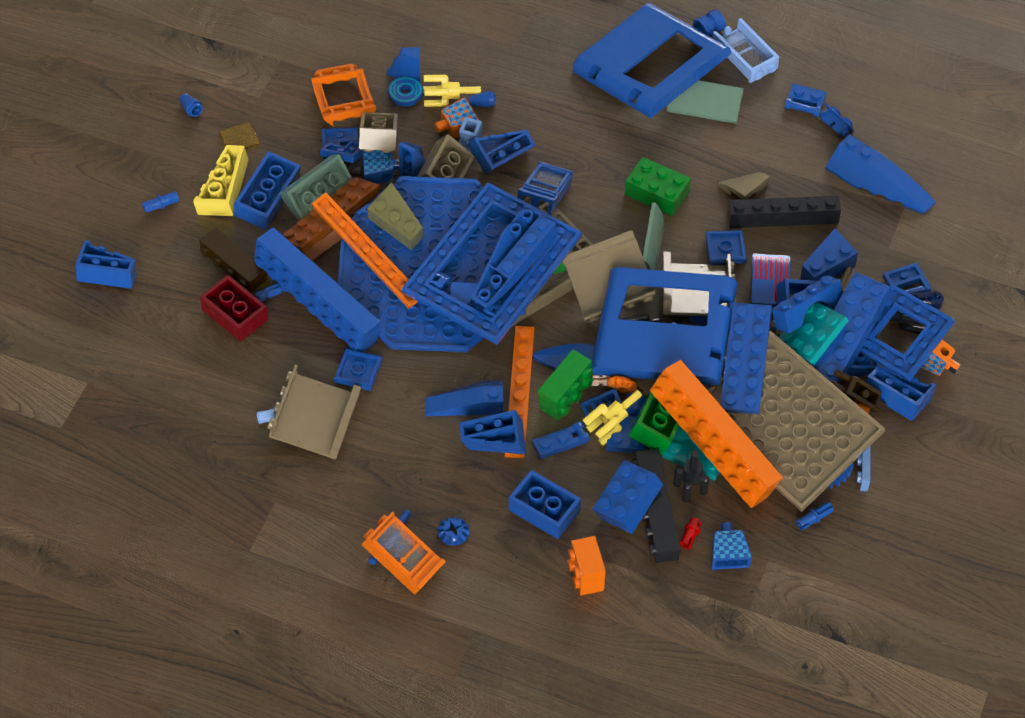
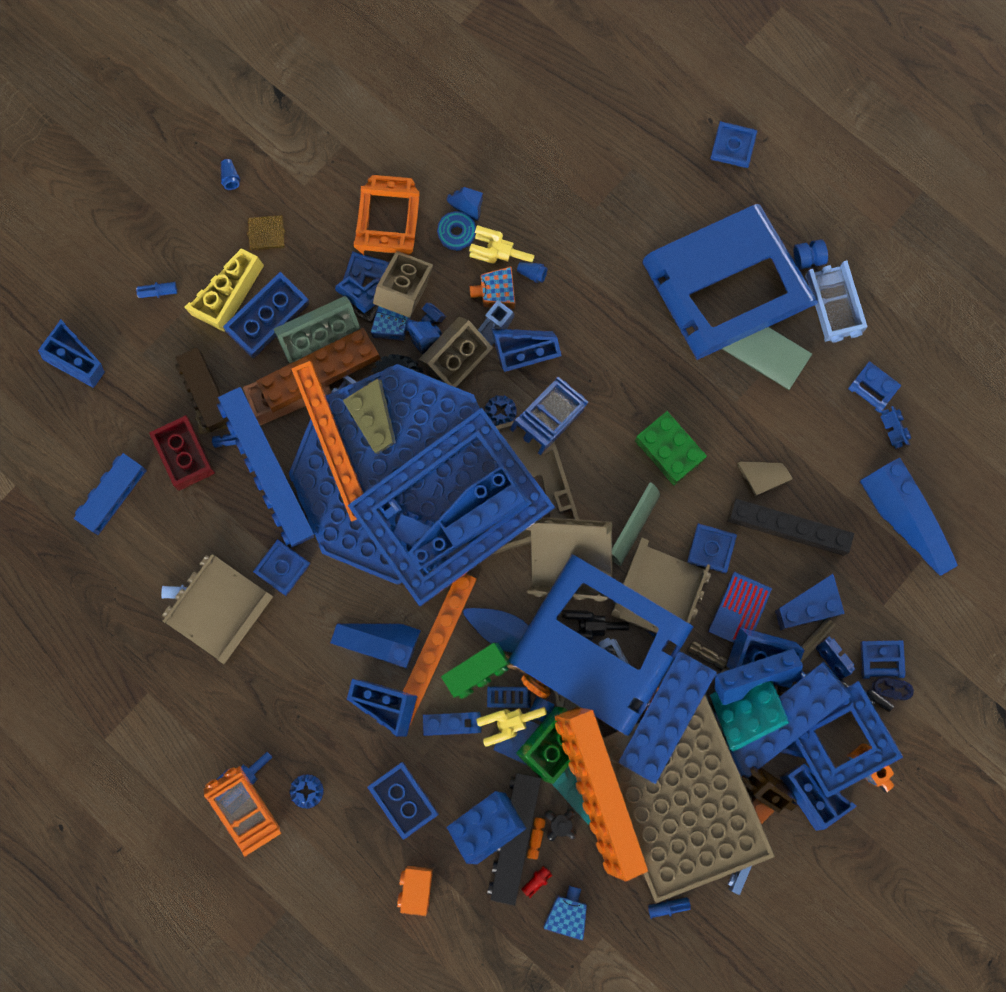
camera: 20 degrees right, 25 degrees up
(179, 359) = (109, 494): none -> blue brick
(675, 501) = (536, 838): none -> orange axle

